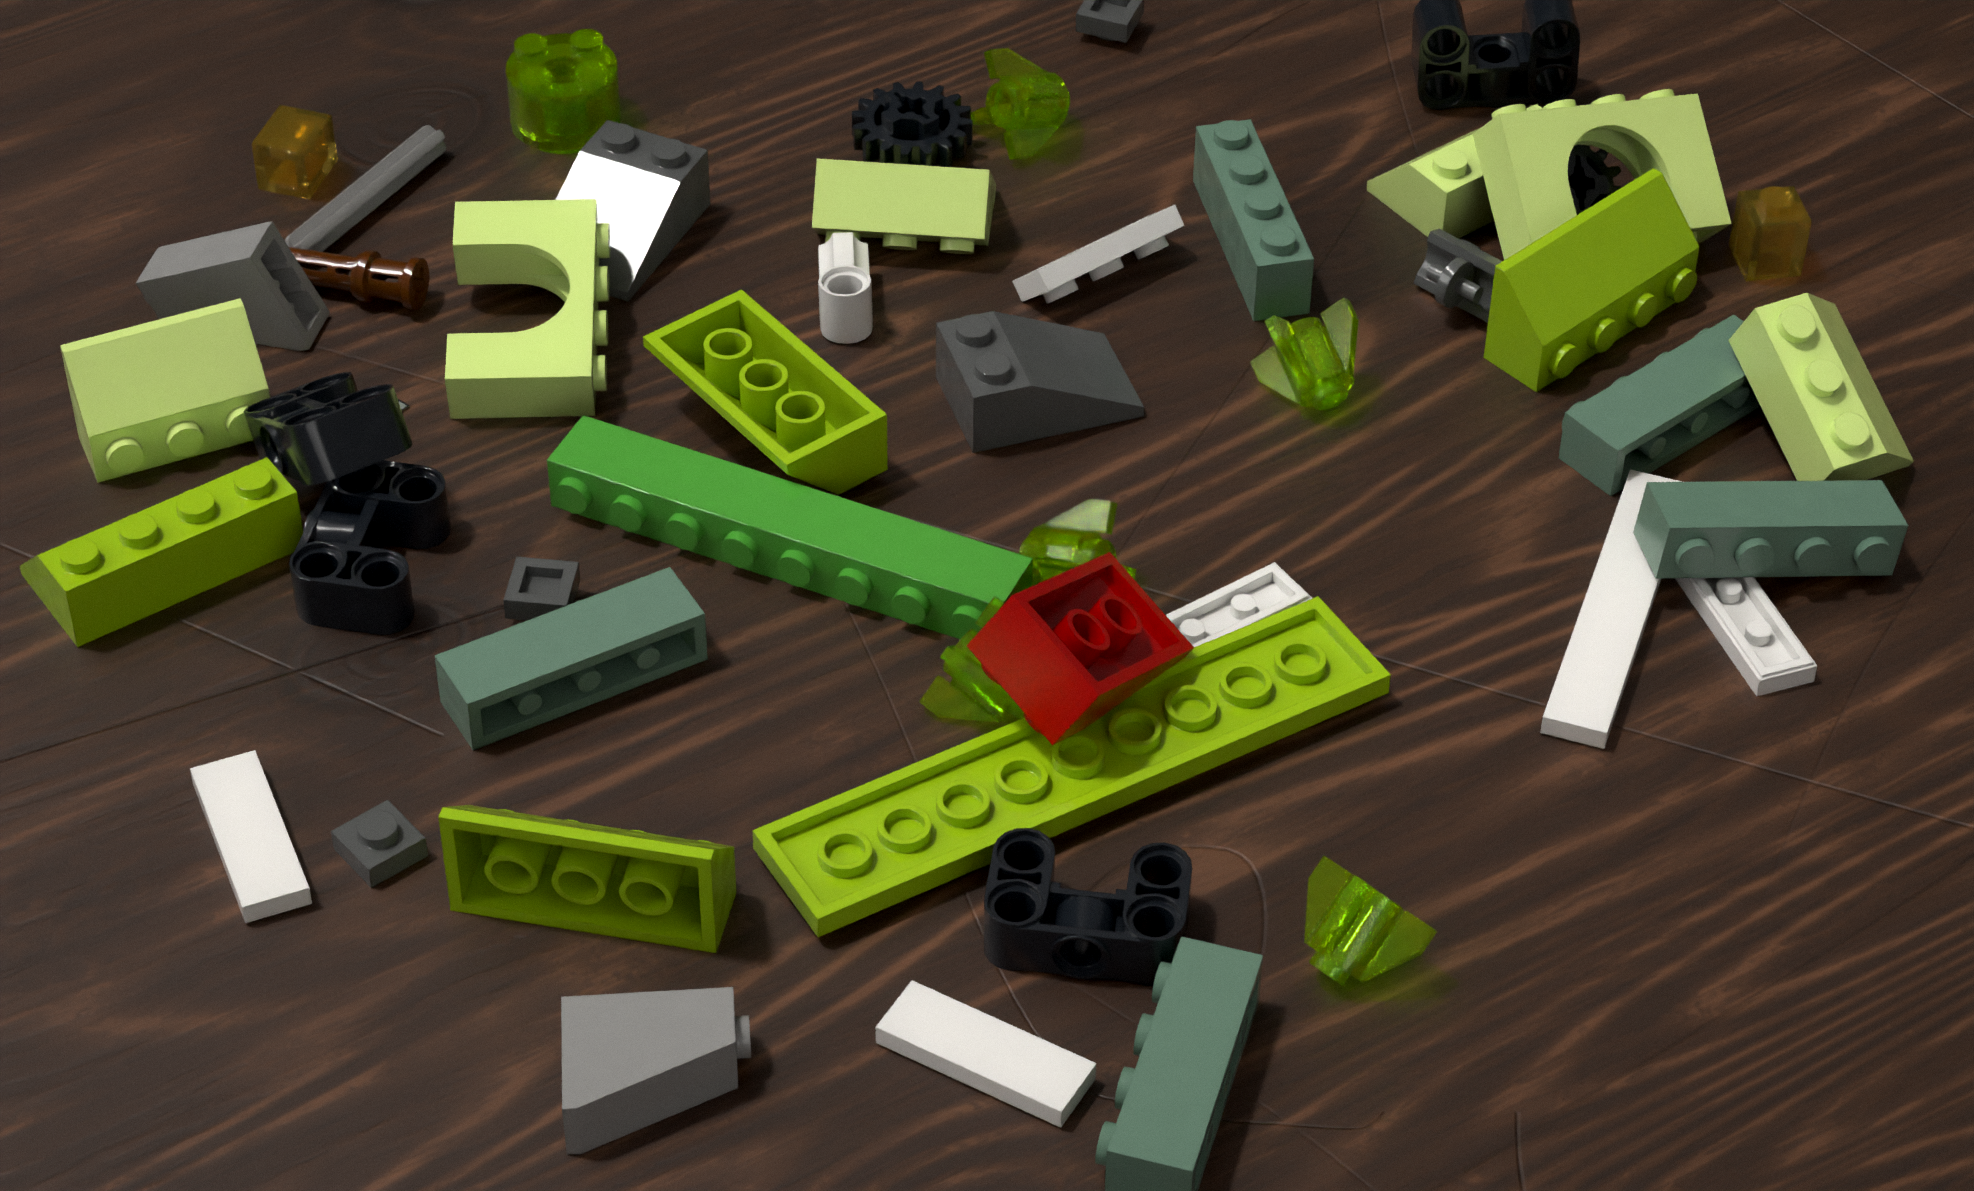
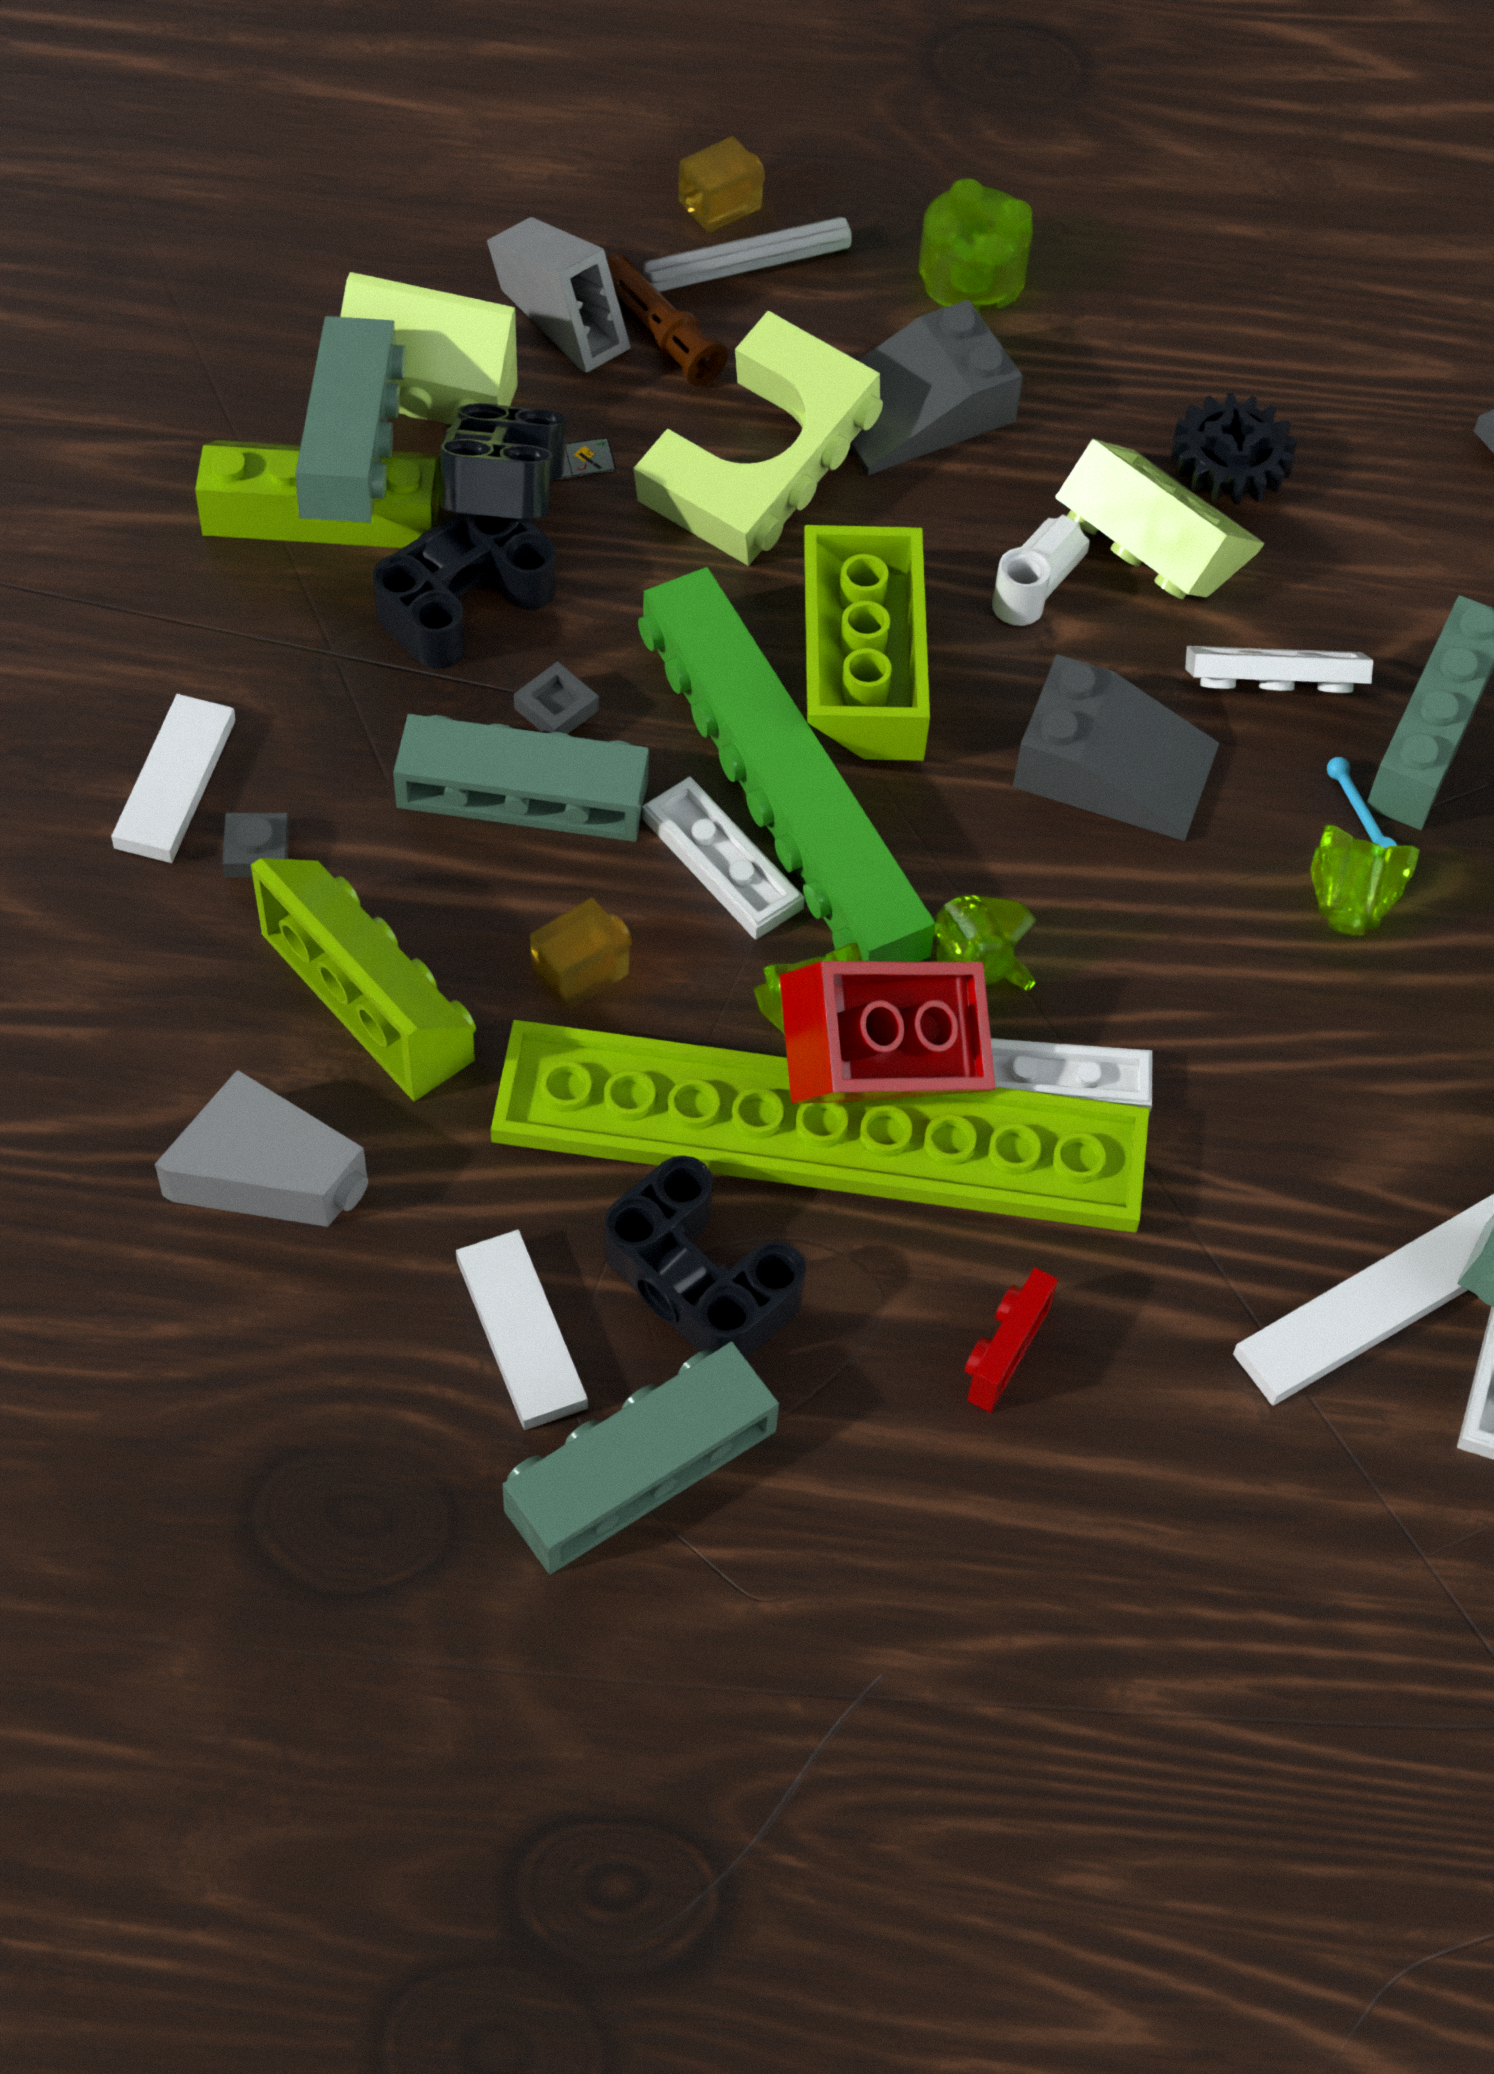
camera: 35 degrees right, 15 degrees up
(172, 455) = (348, 418): none -> sand green brick
(756, 754) = (581, 953): none -> clear yellow brick
(797, 626) = (723, 858): none -> white tile
(1023, 102) = (1349, 481): clear neon green brick -> none
(1211, 302) = (1339, 769): none -> medium azure hinge
(1357, 926) = (888, 1430): clear neon green brick -> none
(1383, 823) = (1021, 1316): none -> red plate

